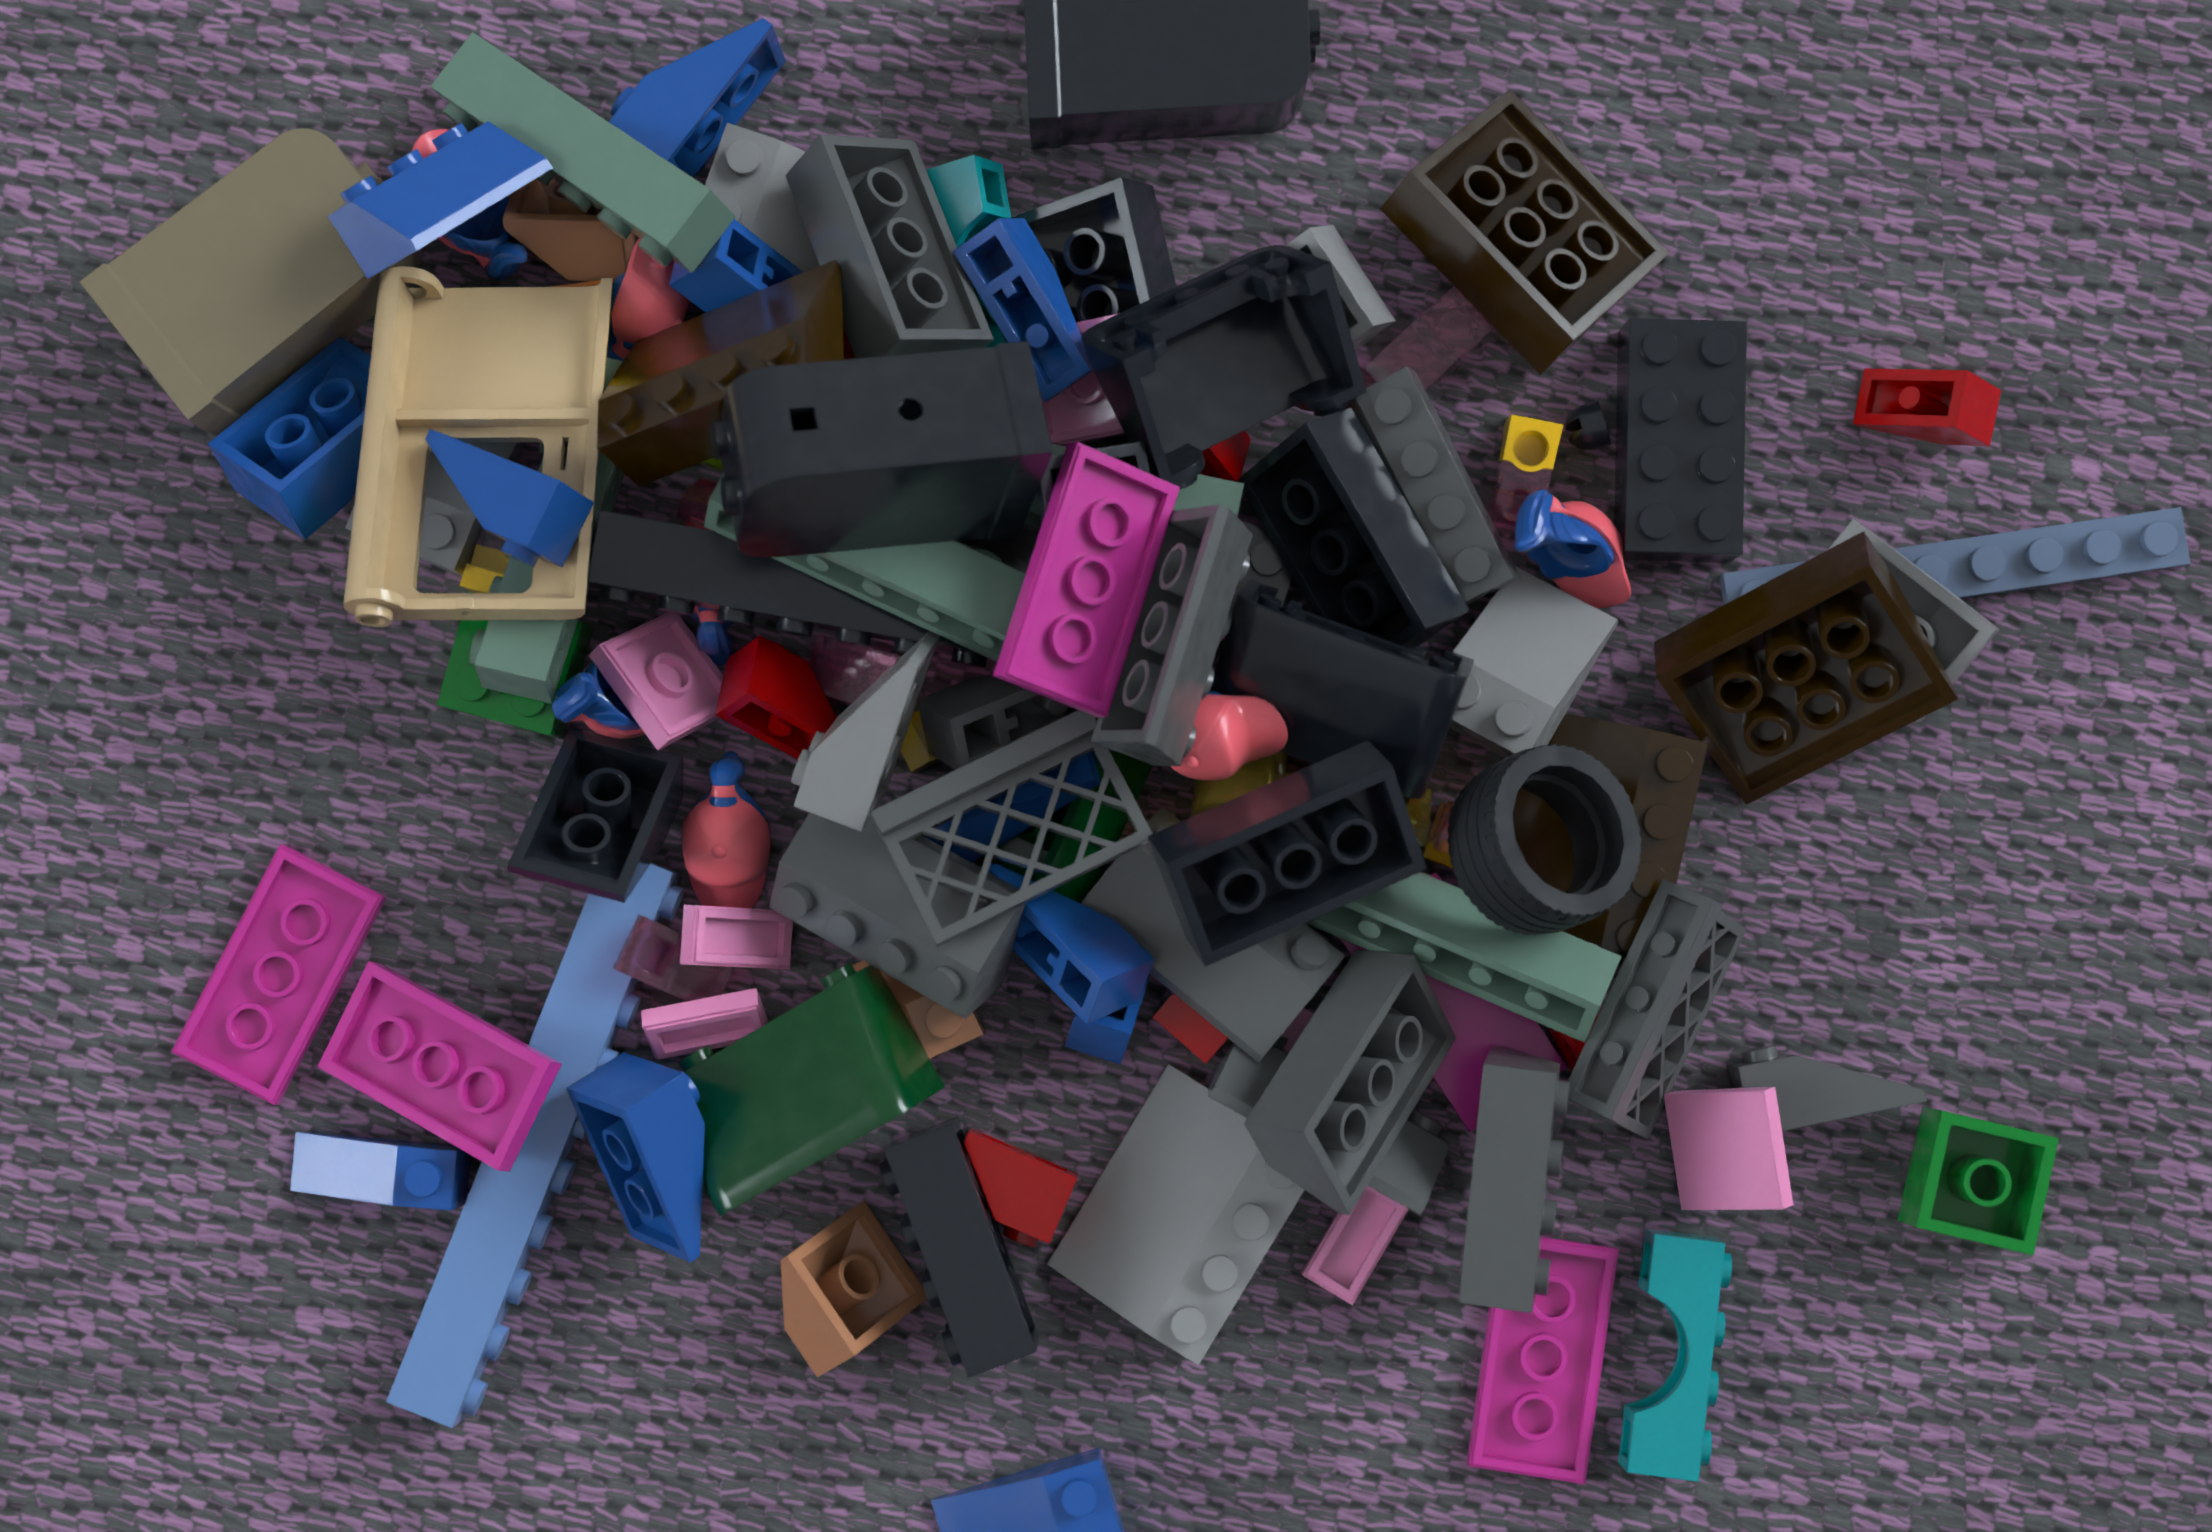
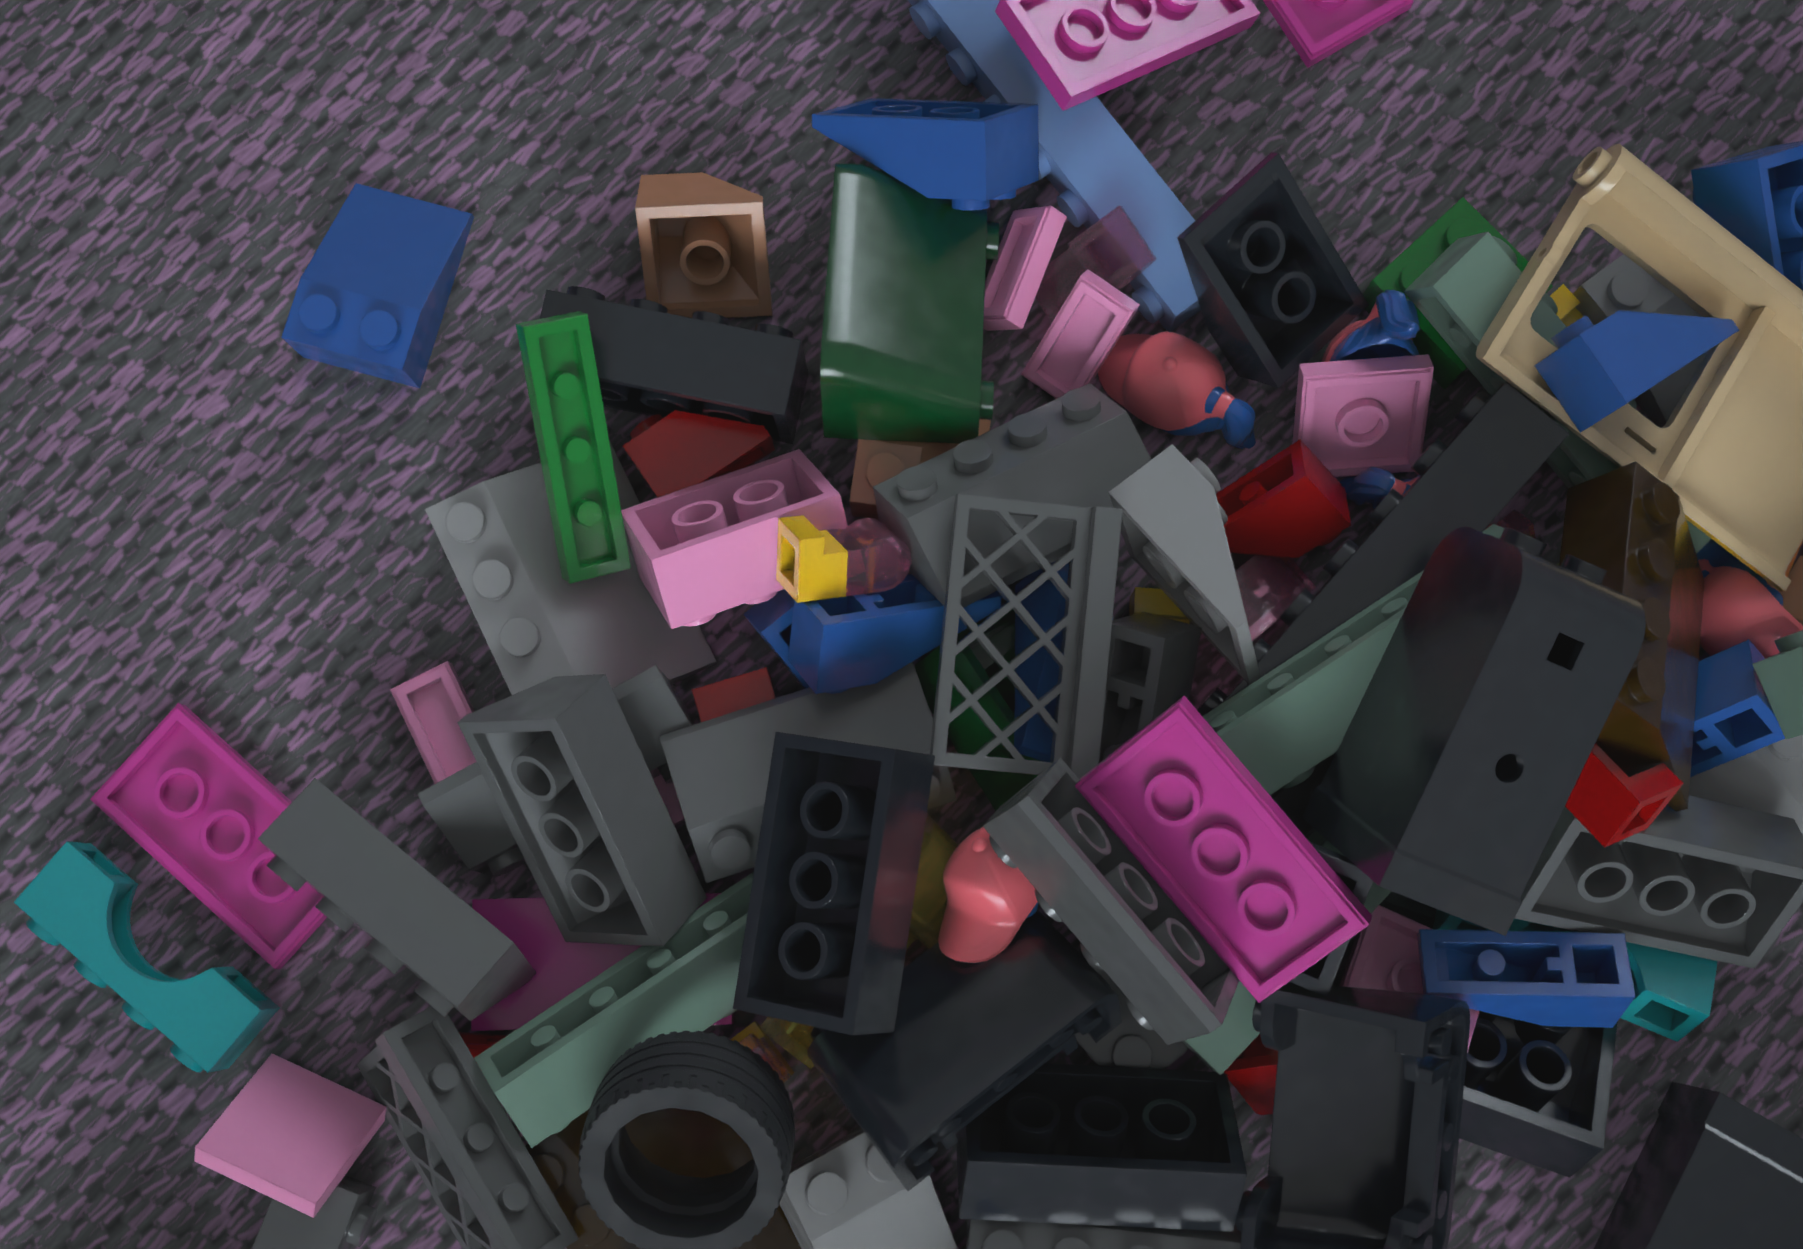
camera: 125 degrees right, 5 degrees down
(874, 315) = (1616, 804): none -> red panel
(1041, 1007) = (838, 561): none -> leg
(1067, 1101) = (719, 537): none -> bright pink brick
(1078, 1273) = (574, 445): none -> green plate

